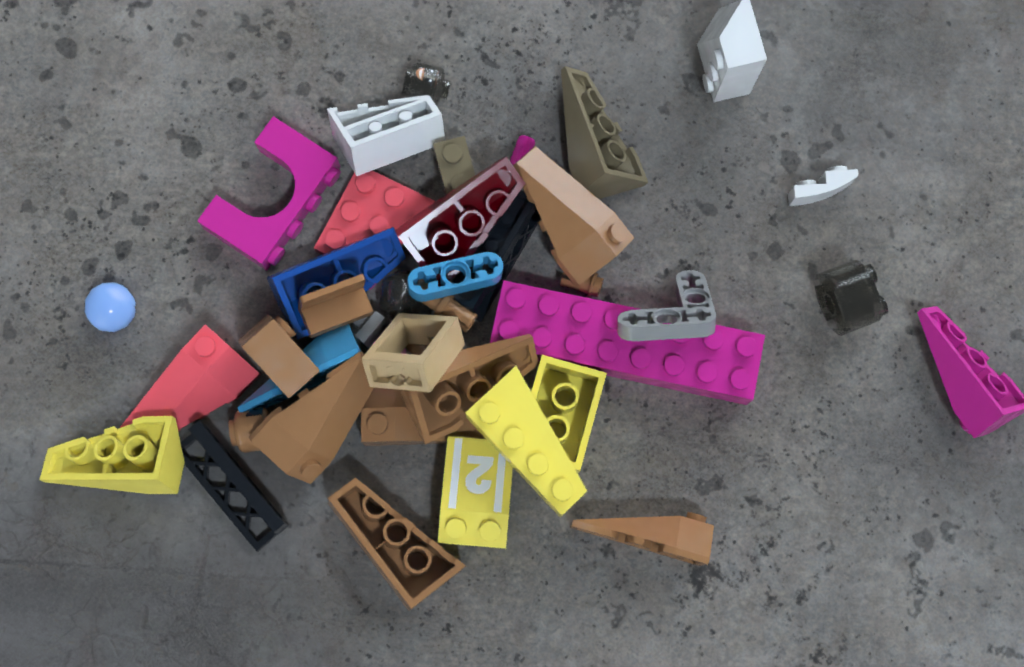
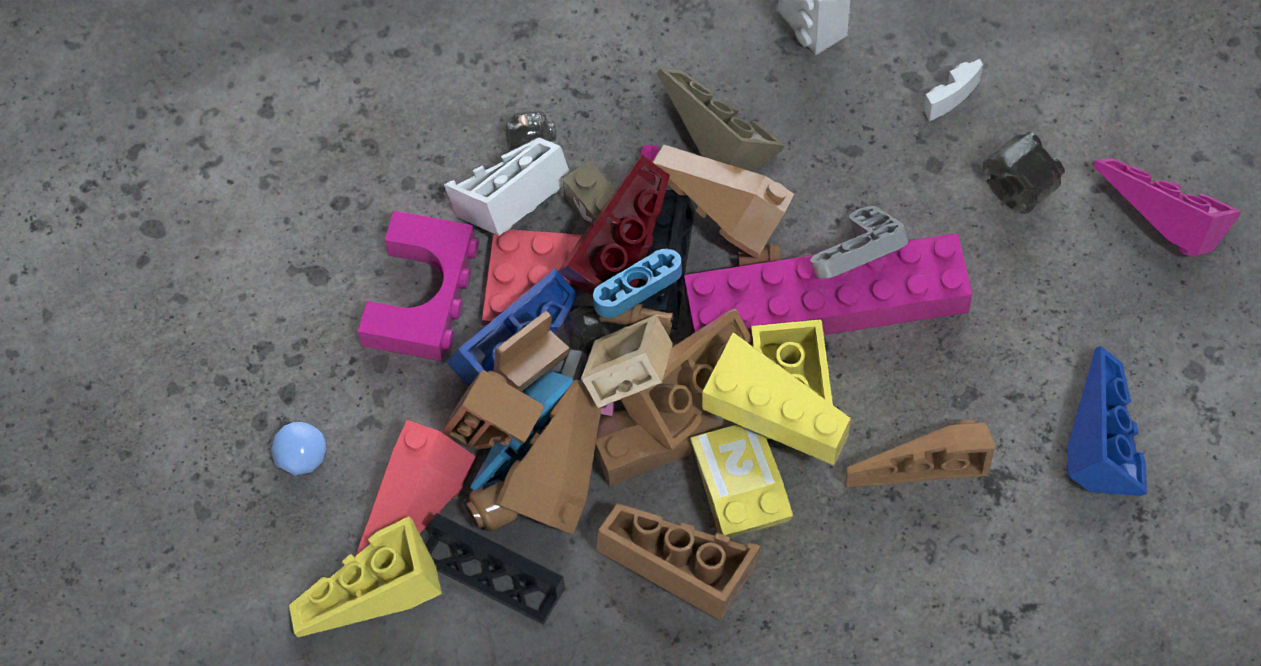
camera: 15 degrees left, 15 degrees down
(812, 579) = (1102, 439): none -> blue wedge

